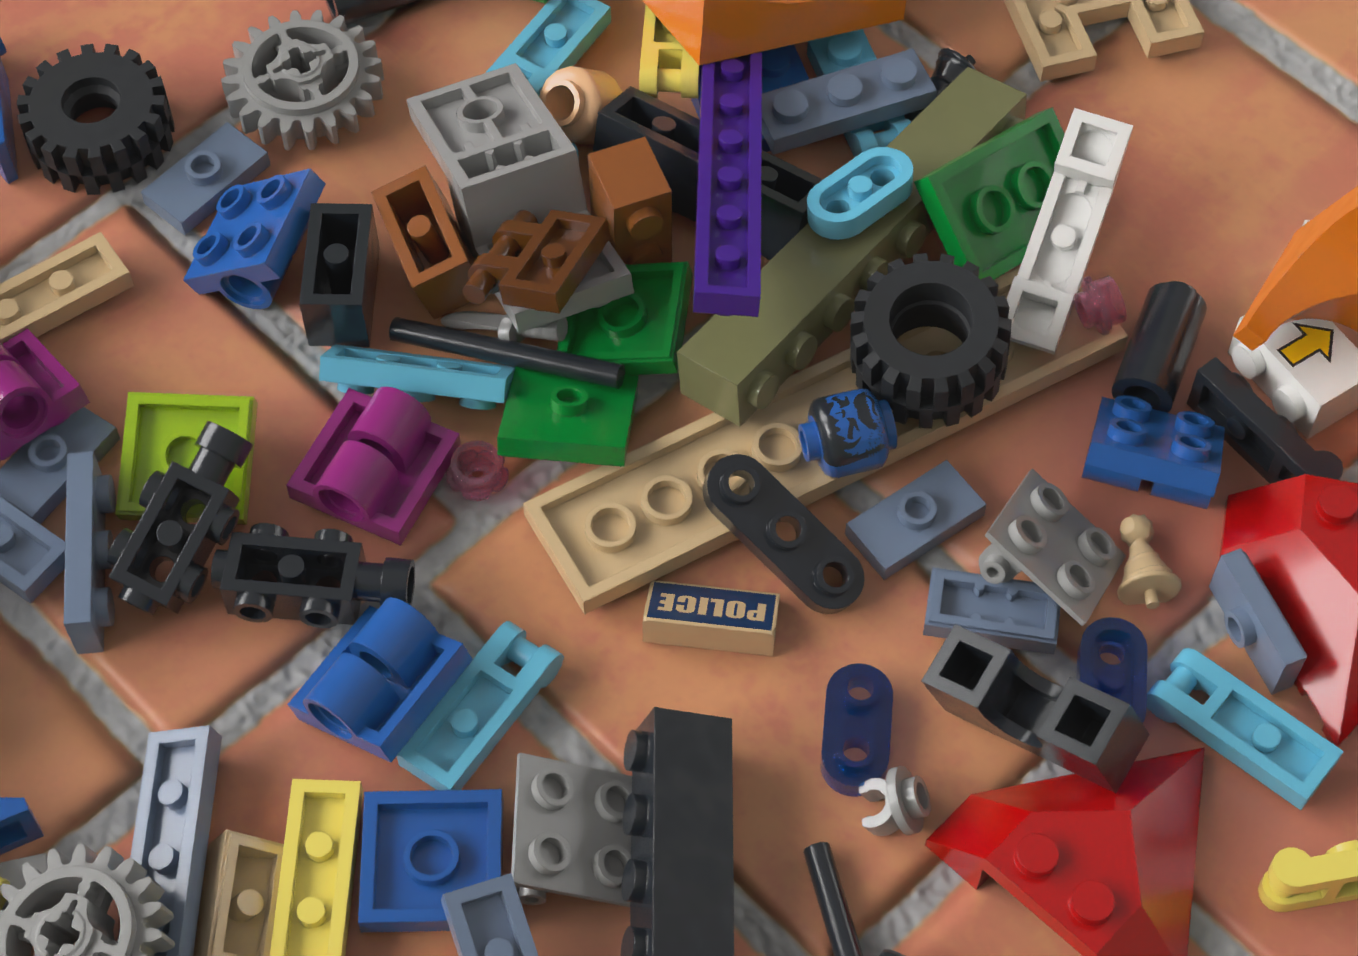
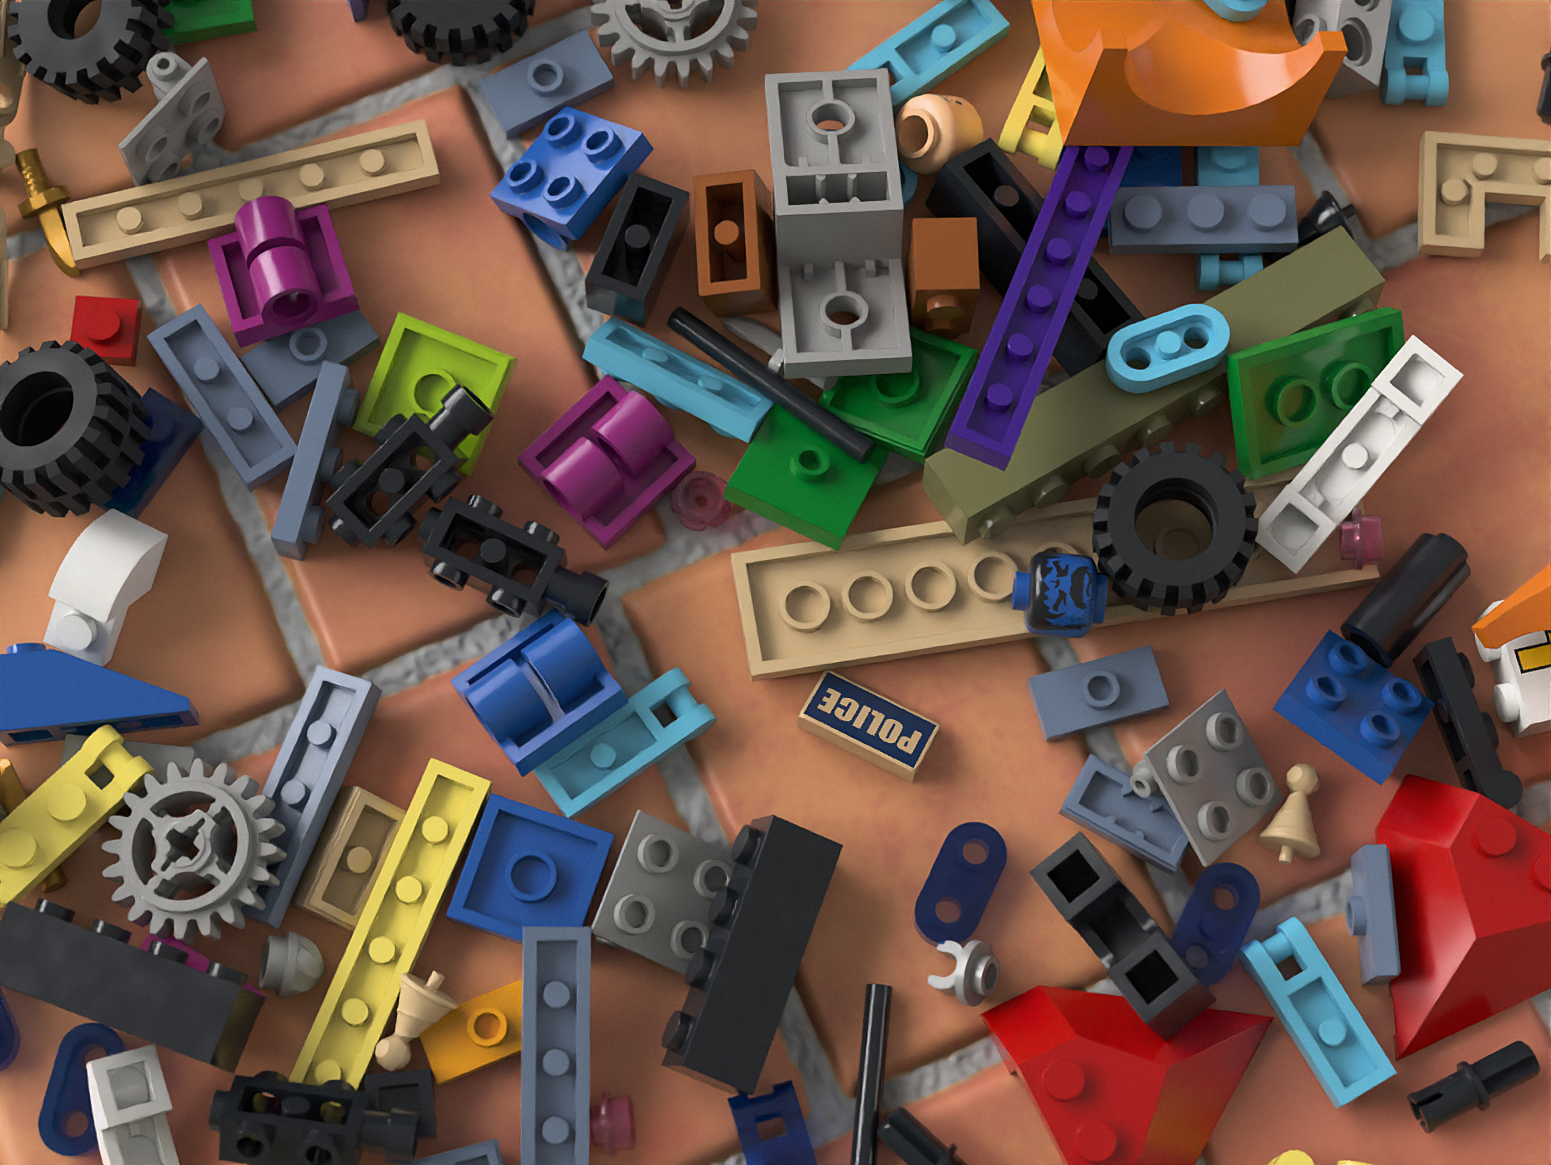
camera: 15 degrees right, 15 degrees up
(537, 262) = (836, 325): reddish brown plate -> none
(794, 562) = (941, 651): black plate -> none

